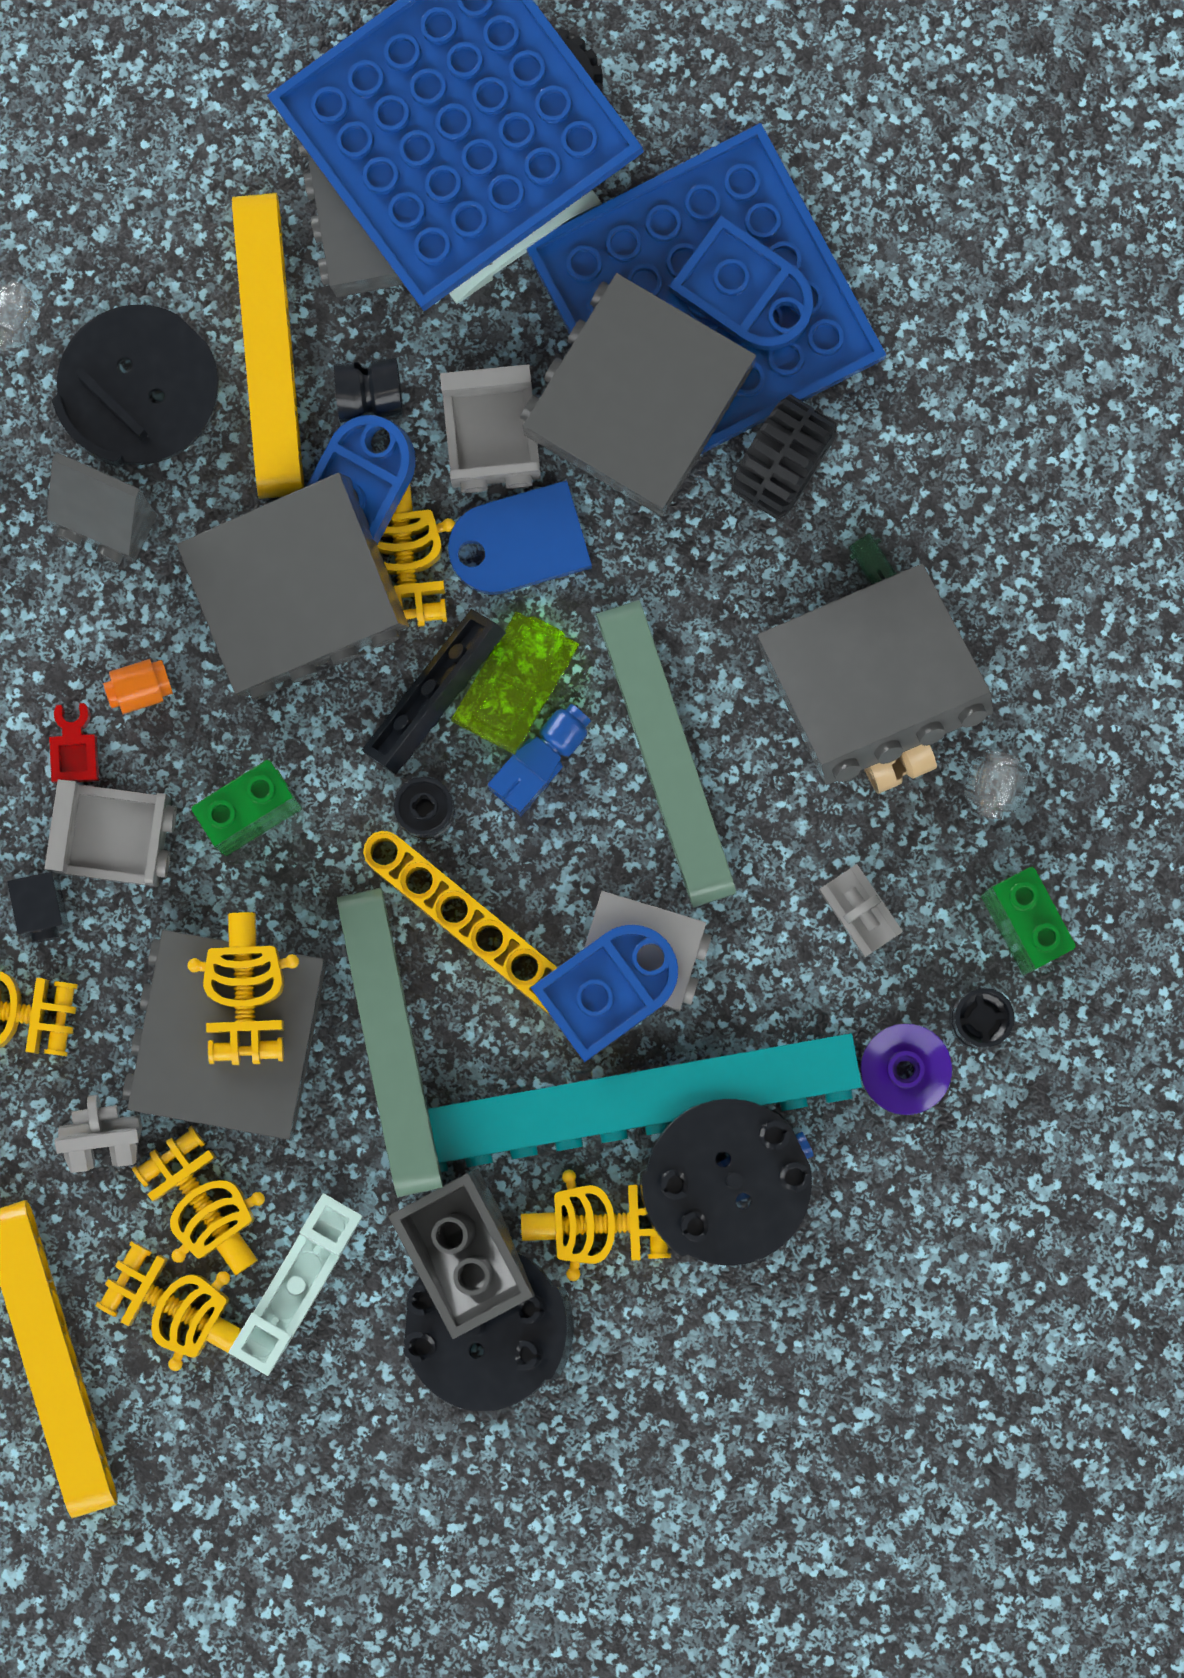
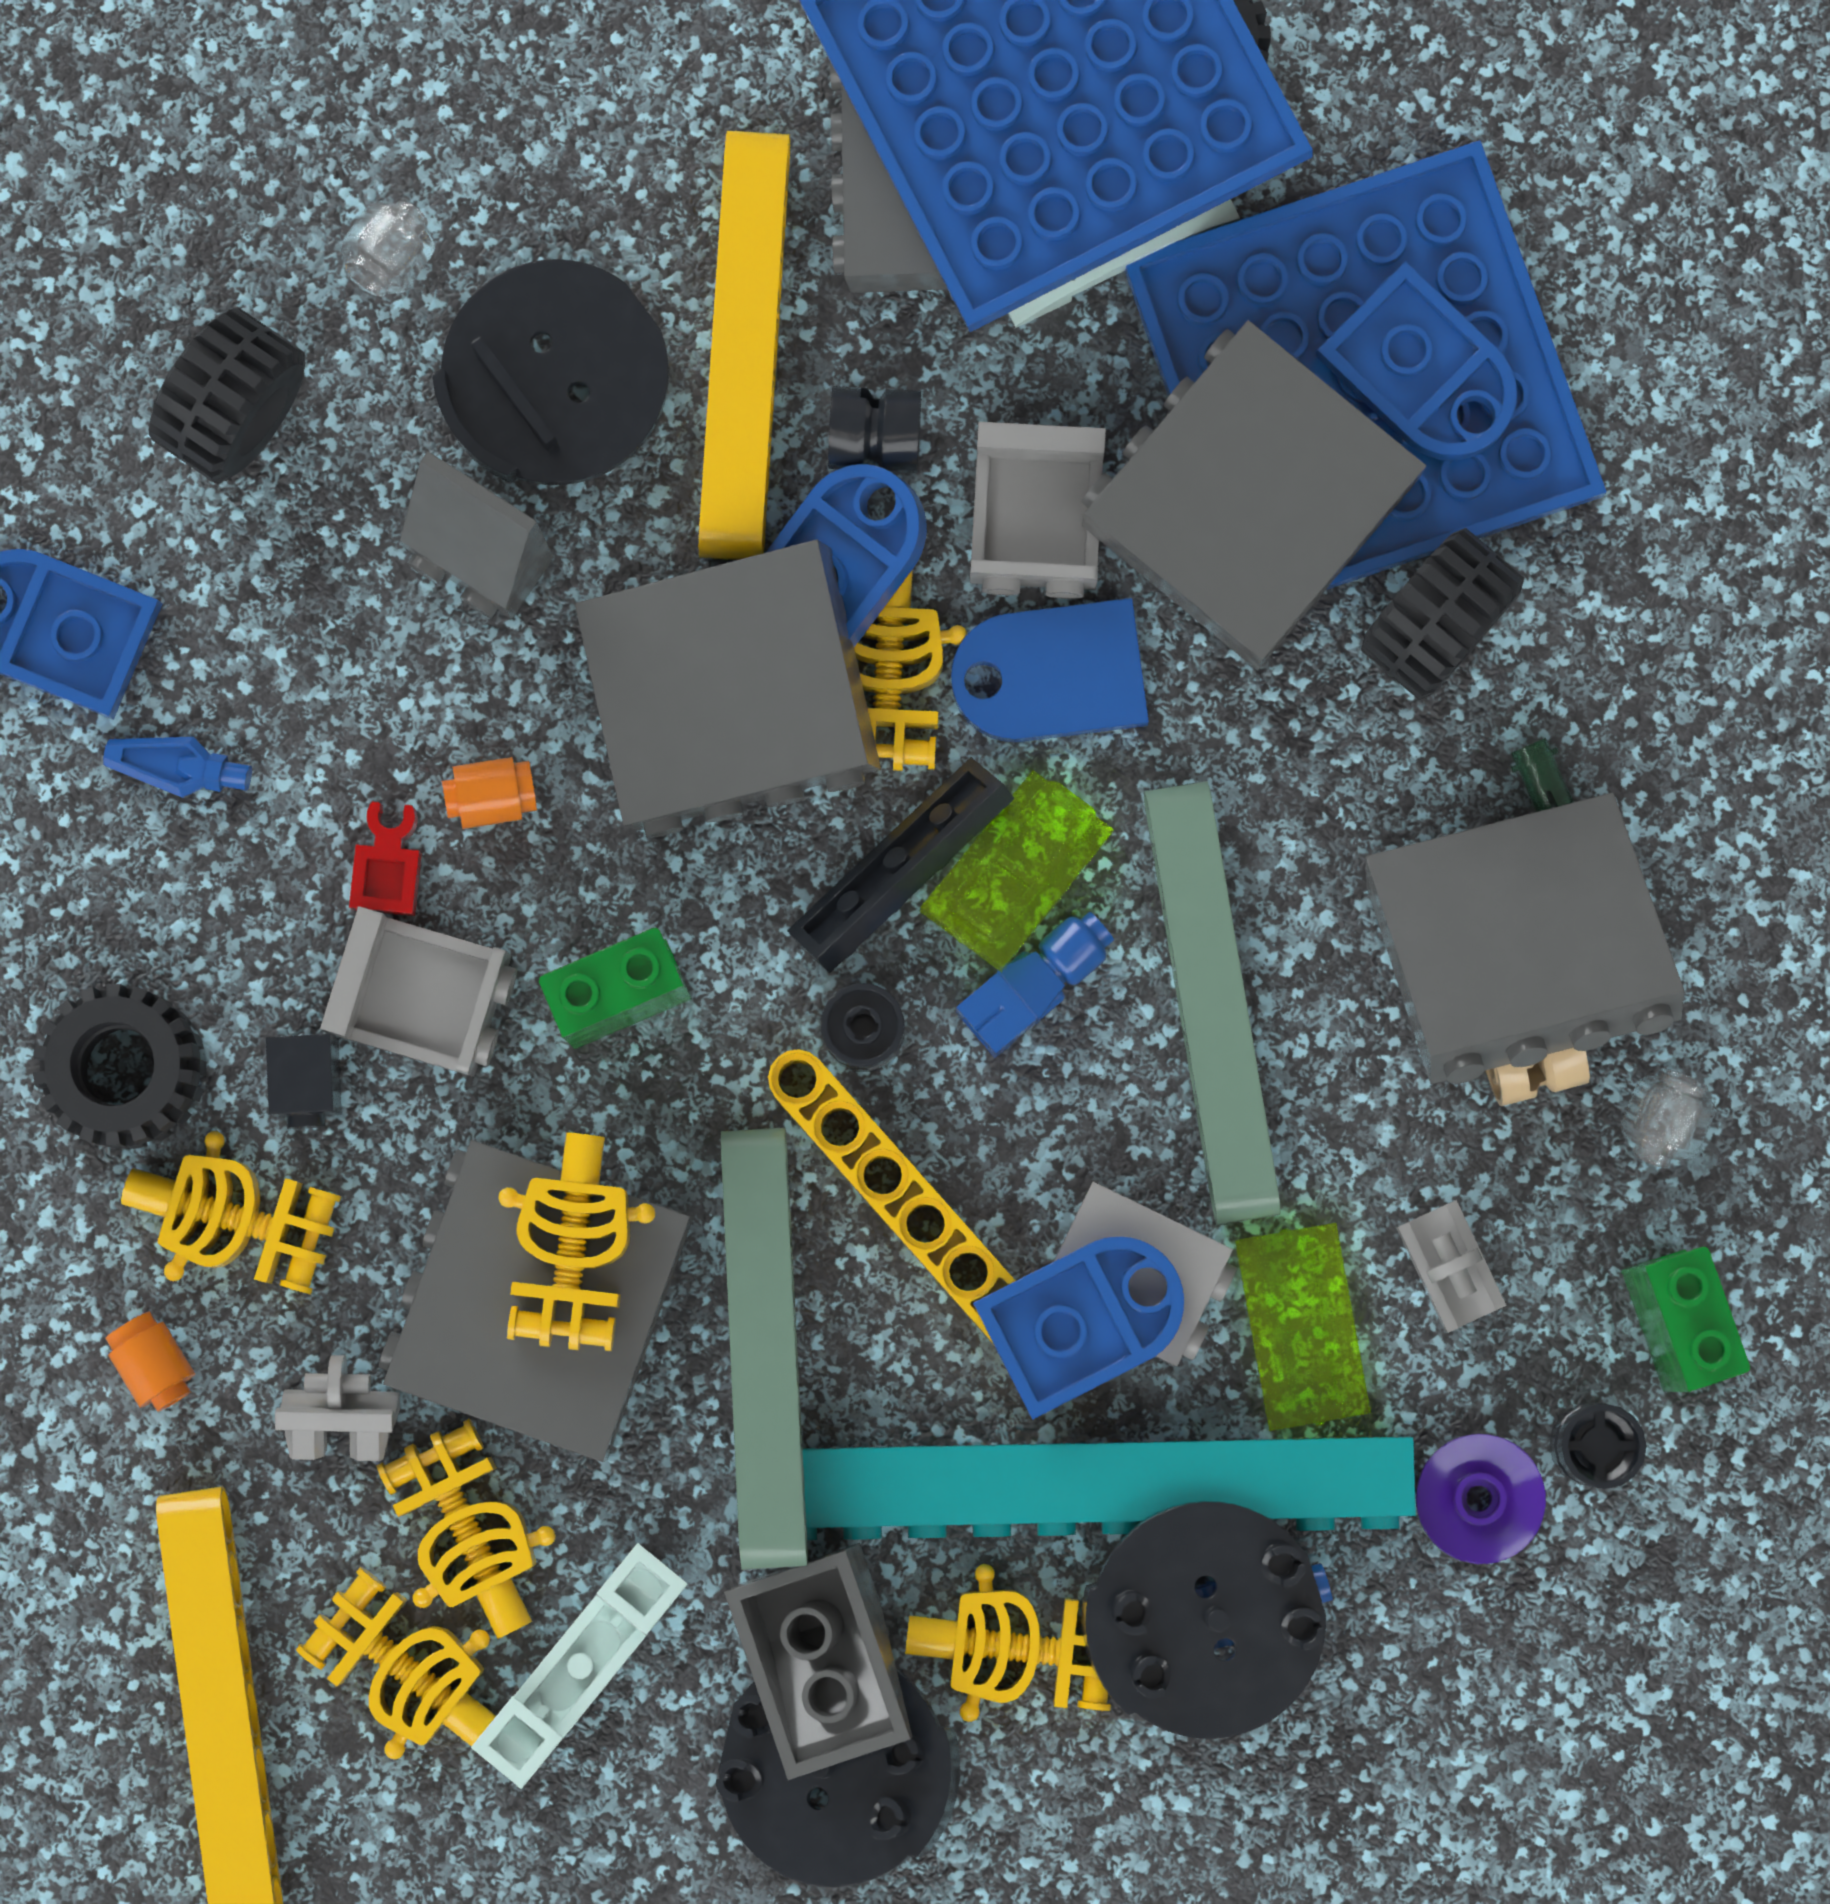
camera: 10 degrees right, 0 degrees up
(764, 969) = (1302, 1326): none -> clear neon green piece

